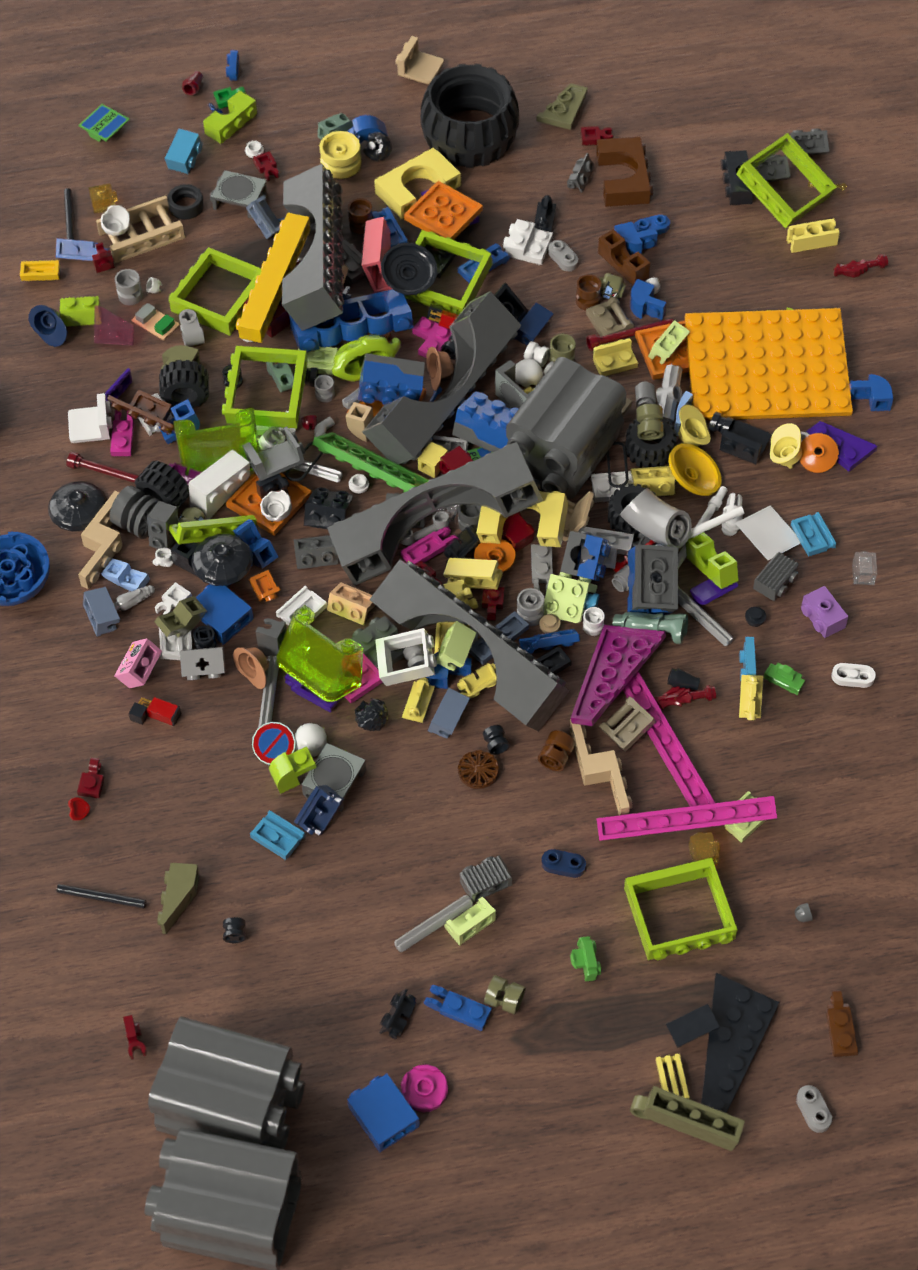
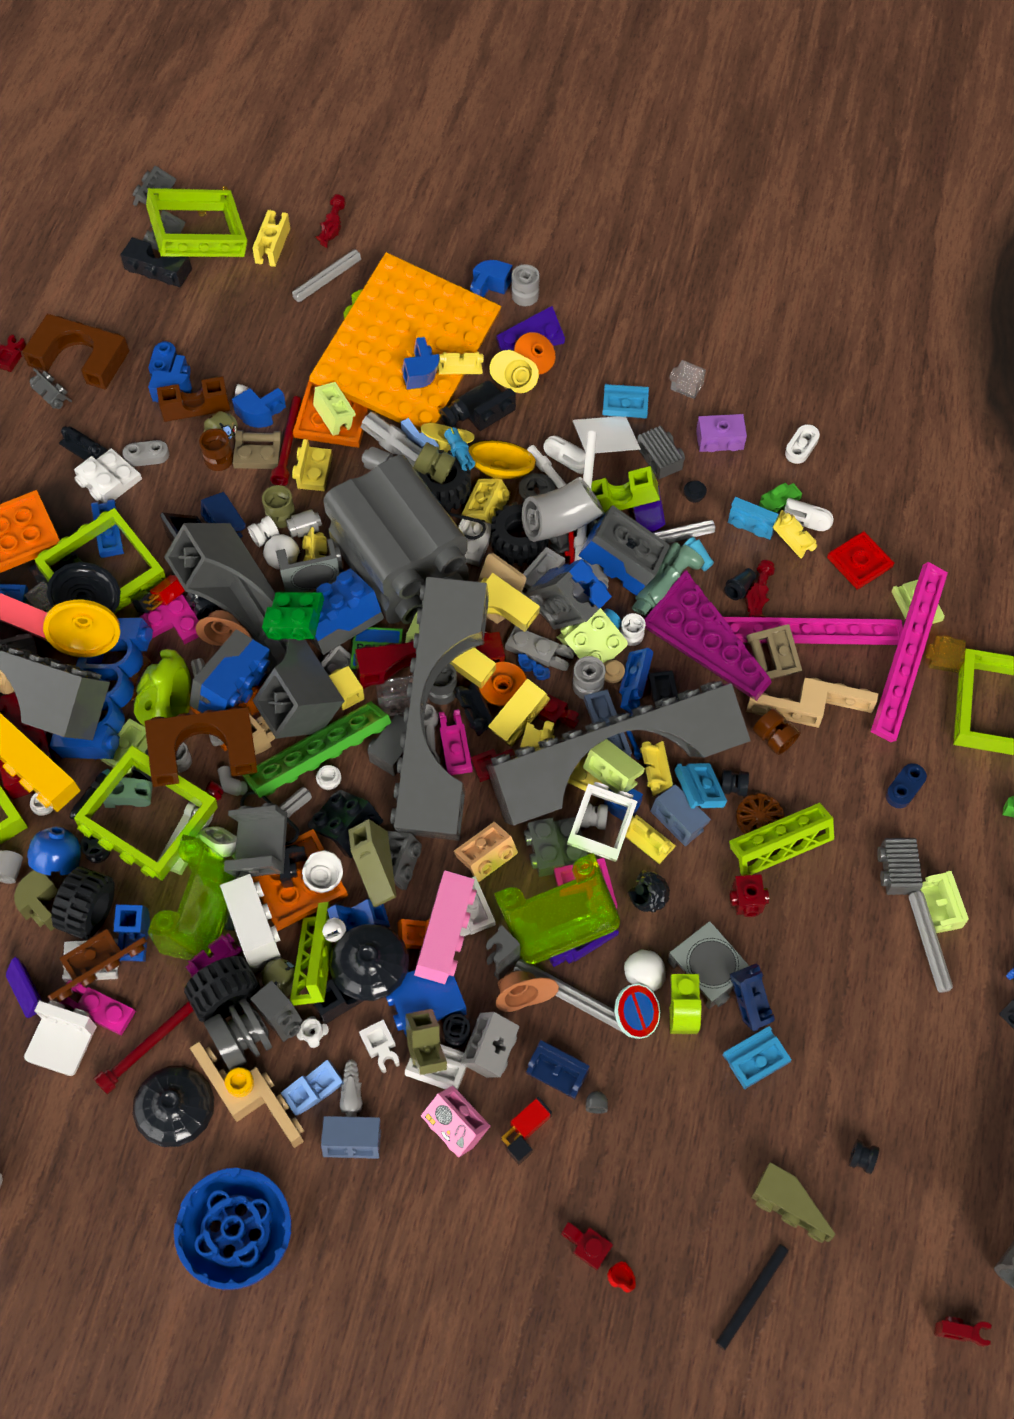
camera: 65 degrees left, 5 degrees up
(103, 526) = (239, 1082): none -> yellow tile
(194, 746) = (596, 1103): none -> dark grey hinge
(207, 712) = (557, 1069): none -> dark blue hinge
(213, 353) = (54, 851): none -> blue cylinder
(232, 526) = (332, 925): none -> white hinge
(271, 593) = (444, 928): none -> bright pink brick
(303, 528) = (373, 859): none -> olive slope
(320, 364) = (167, 735): none -> reddish brown arch
(376, 278) = (81, 628): none -> yellow dish
(402, 781) = (749, 895): none -> dark red brick
(458, 393) = (293, 615): none -> green plate
(466, 785) = (783, 835): none -> lime fence
(478, 716) = (700, 785): none -> dark azure plate
(524, 567) = (528, 664): none -> blue piece
(677, 434) = (459, 449): none -> dark azure pin
(692, 502) = (528, 483): none -> dark grey gear
(693, 638) = (699, 548): none -> medium azure cone
(740, 381) = (422, 368): none -> blue brick
(760, 758) = (860, 560): none -> red plate
(767, 404) = (460, 364): none -> light yellow hinge
(780, 702) = (809, 515): none -> white arm
(803, 287) = (326, 275): none -> light grey axle
(881, 417) = (525, 285): none -> light grey wheel

